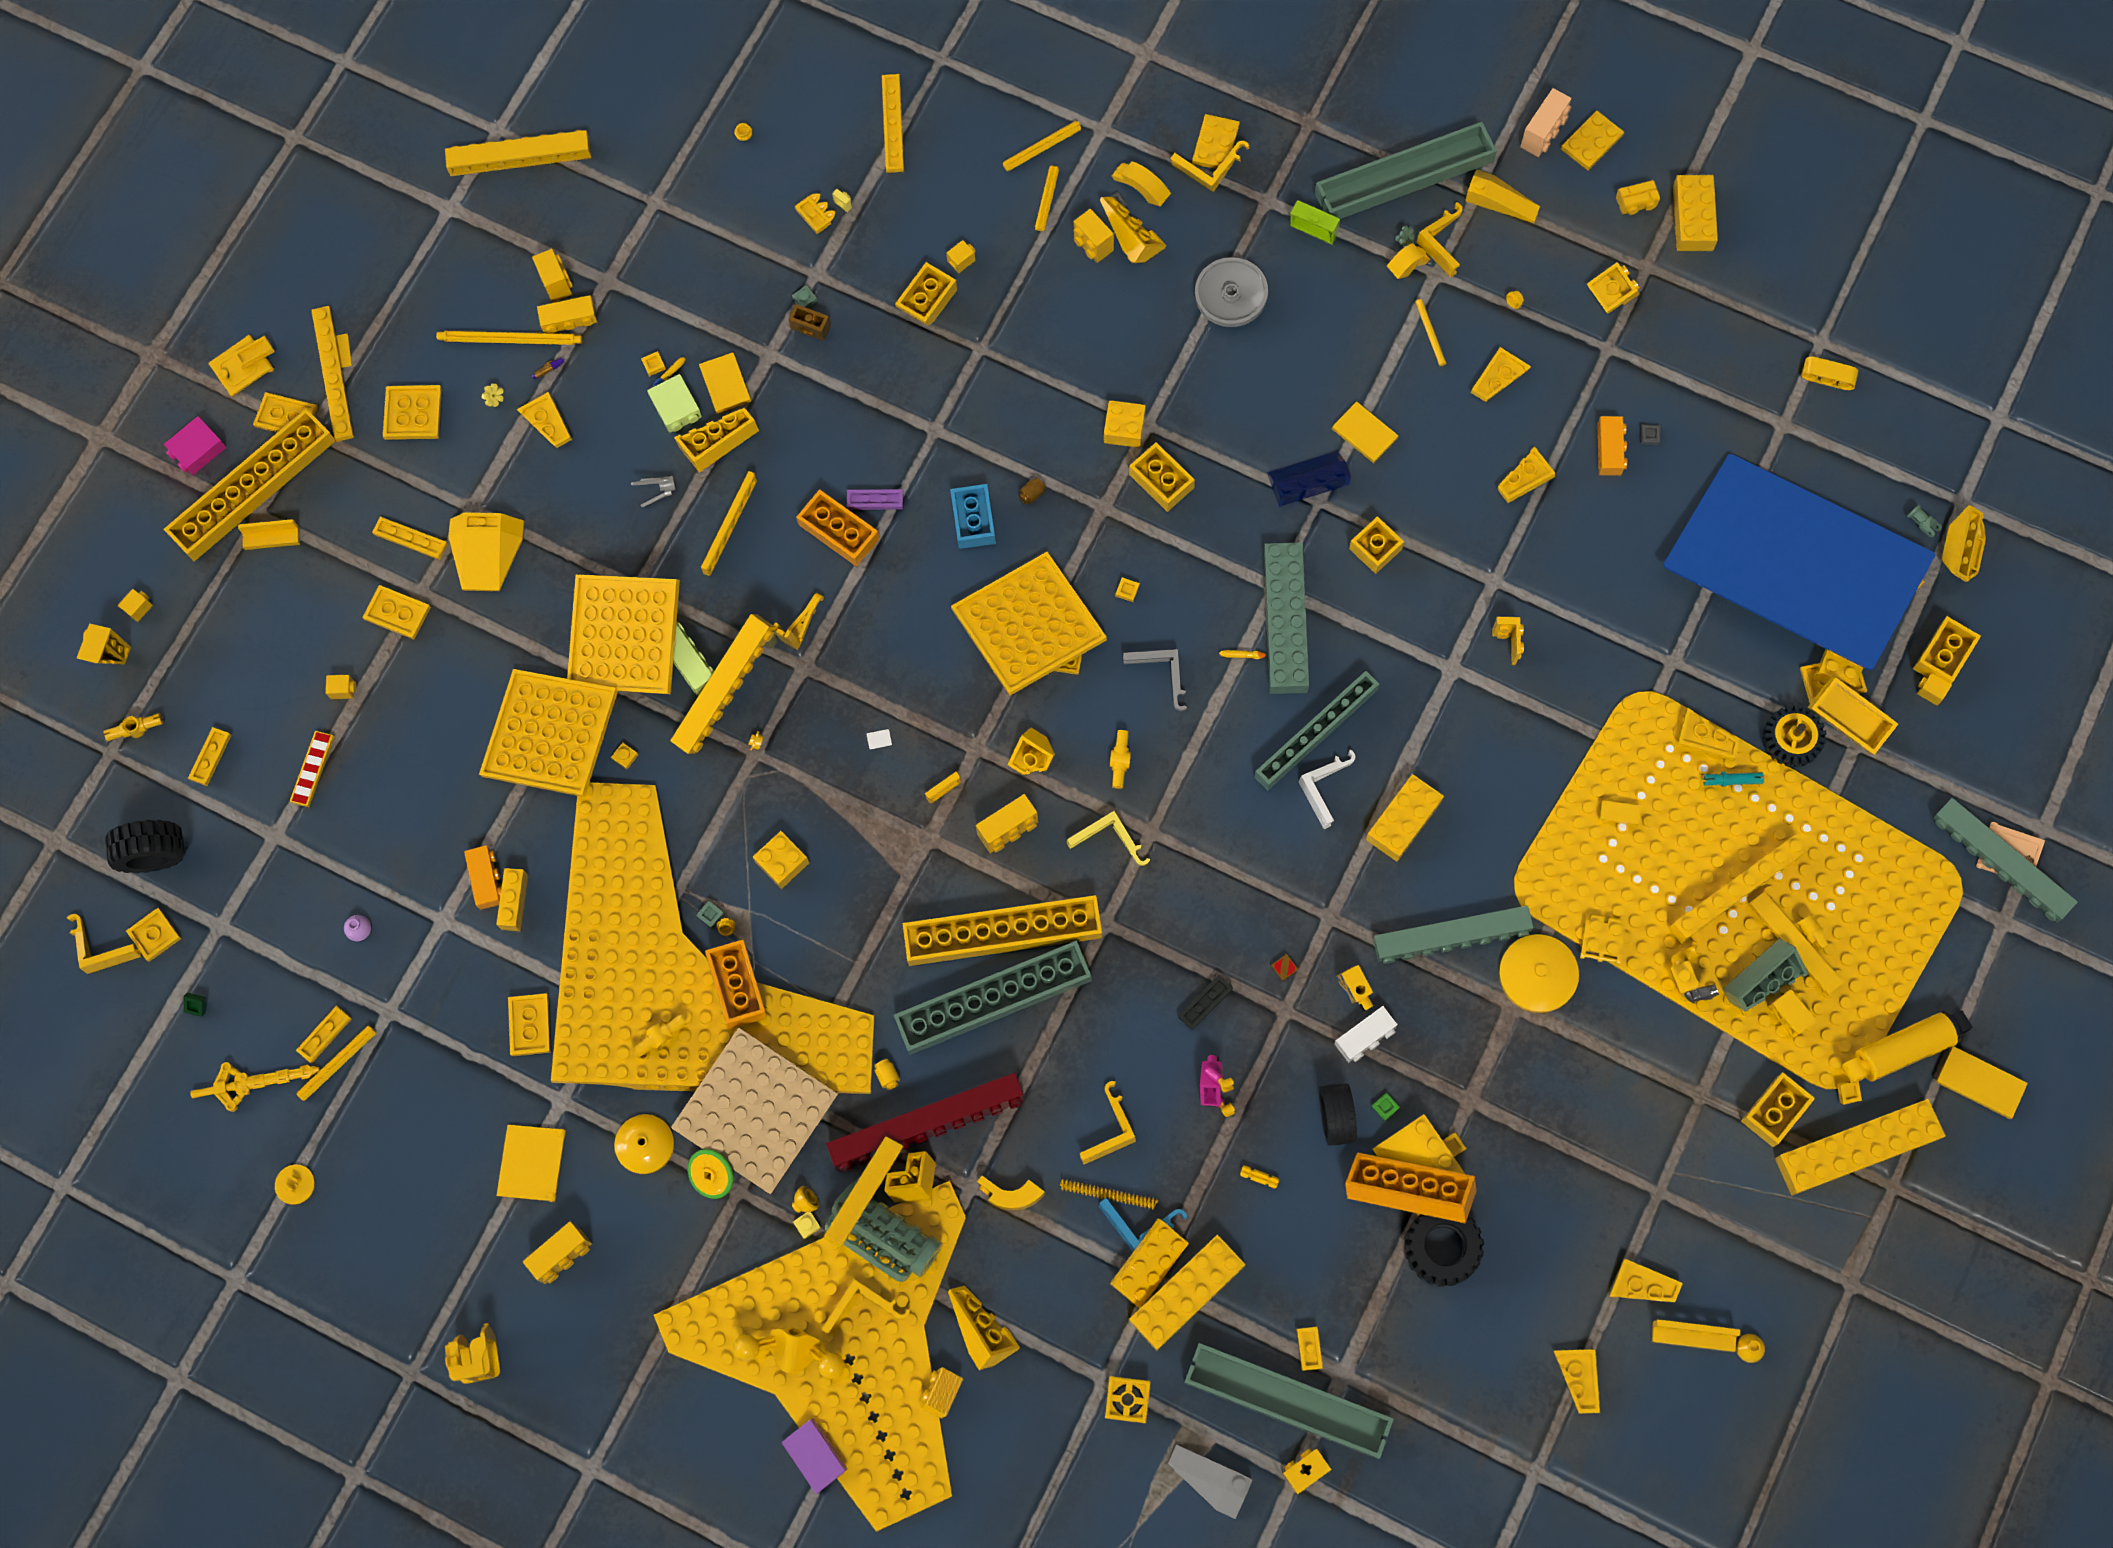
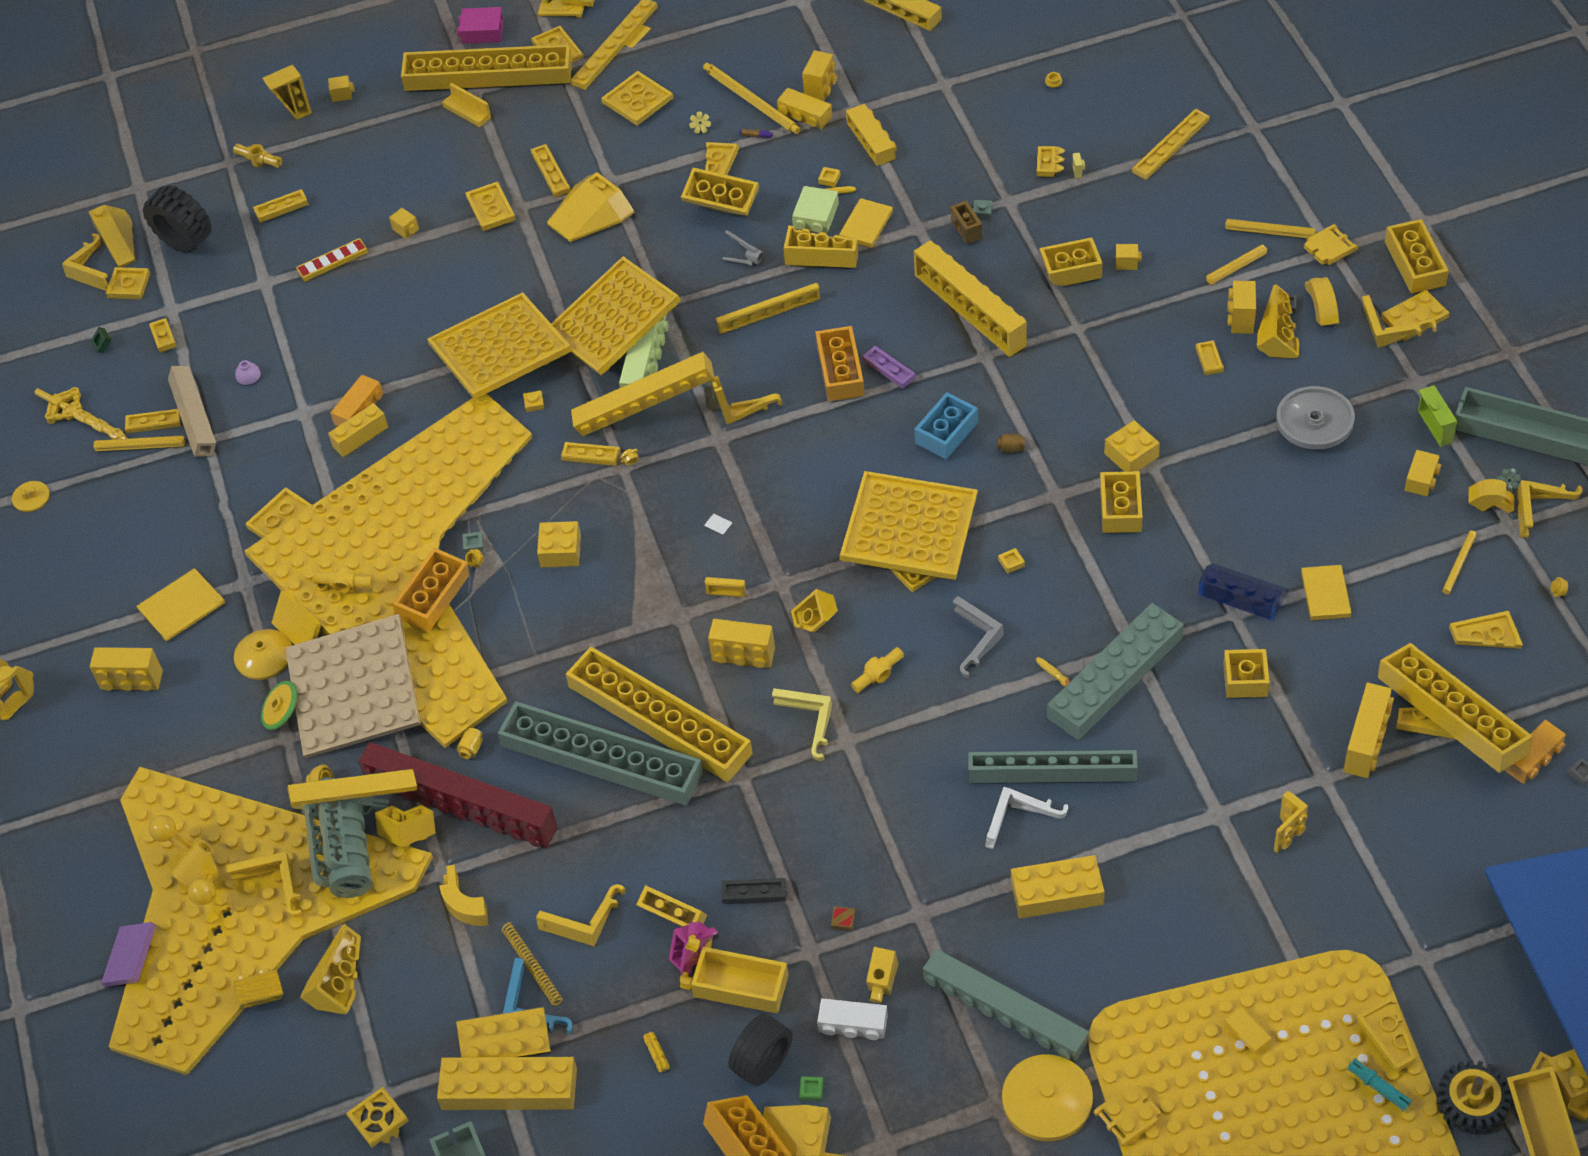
camera: 45 degrees right, 20 degrees down
(85, 897) = (116, 232): none -> yellow wedge
(243, 955) = (162, 335): none -> yellow plate
(351, 999) = (191, 411): none -> tan brick
(587, 450) = (720, 192): none -> yellow windscreen
(647, 297) = (871, 134): none -> yellow brick
(650, 1099) = (295, 620): none -> yellow tile
(719, 763) = (590, 453): none -> yellow tile
(881, 389) = (970, 298): none -> yellow brick
(1100, 128) = (1328, 246): none -> yellow plate
(1103, 298) = (1209, 358): none -> yellow tile
(1168, 1068) = (669, 908): none -> yellow brick
(1175, 89) = (1416, 256): none -> yellow brick
(1268, 1076) = (740, 980): none -> yellow piece
(1344, 279) = (1422, 473): none -> yellow brick
(1497, 522) = (1368, 730): none -> yellow brick
(1539, 457) = (1455, 707): none -> yellow brick

